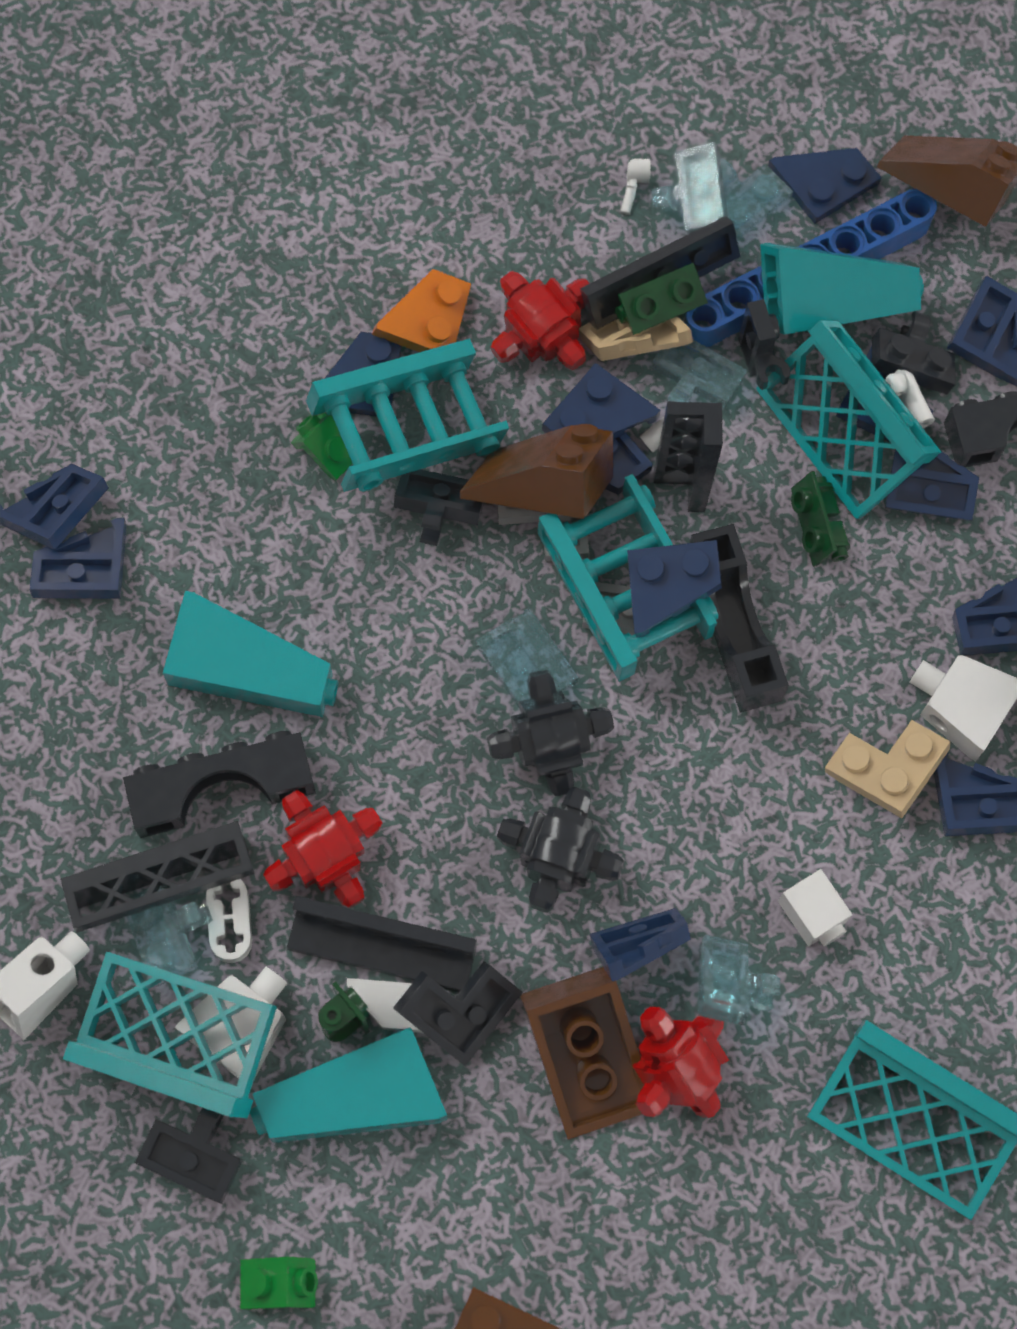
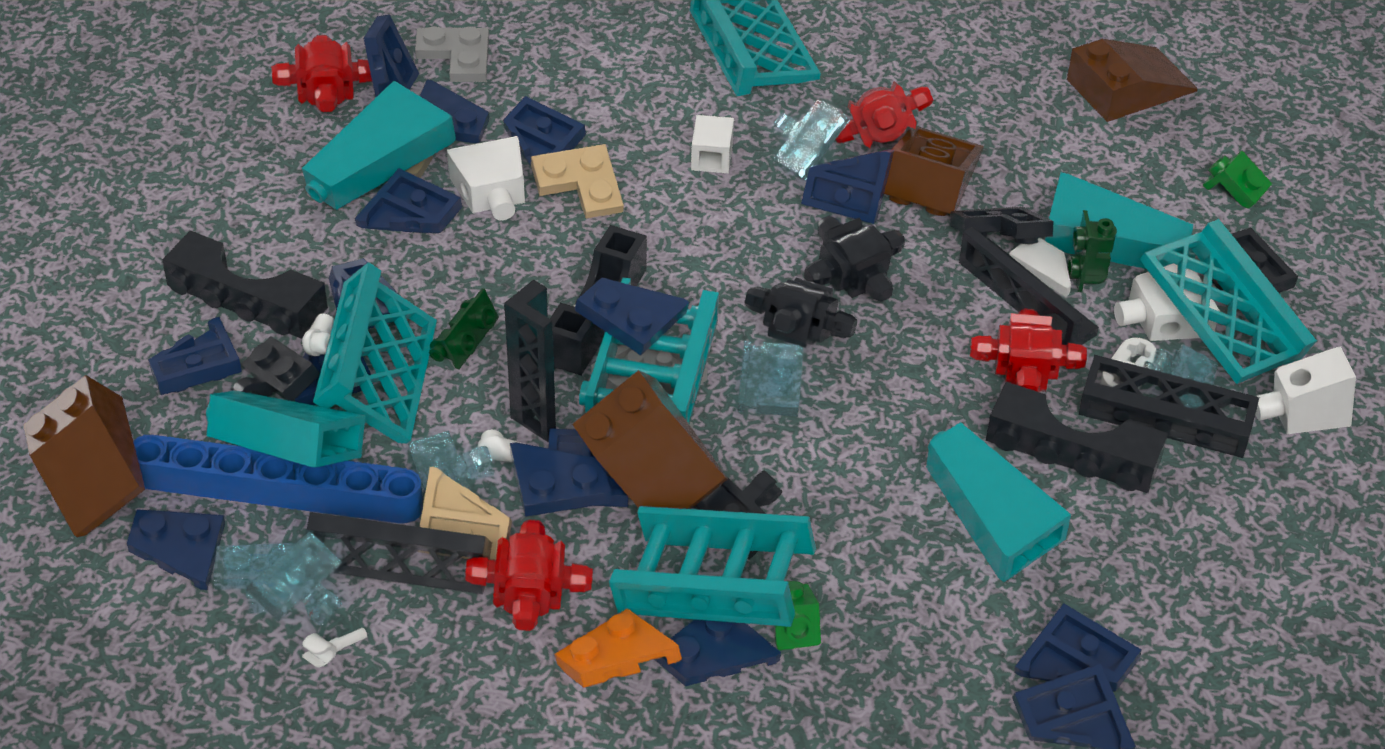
camera: 140 degrees left, 25 degrees down
(661, 299) = (445, 507): dark green hinge -> none
(757, 344) = (383, 429): black plate -> none

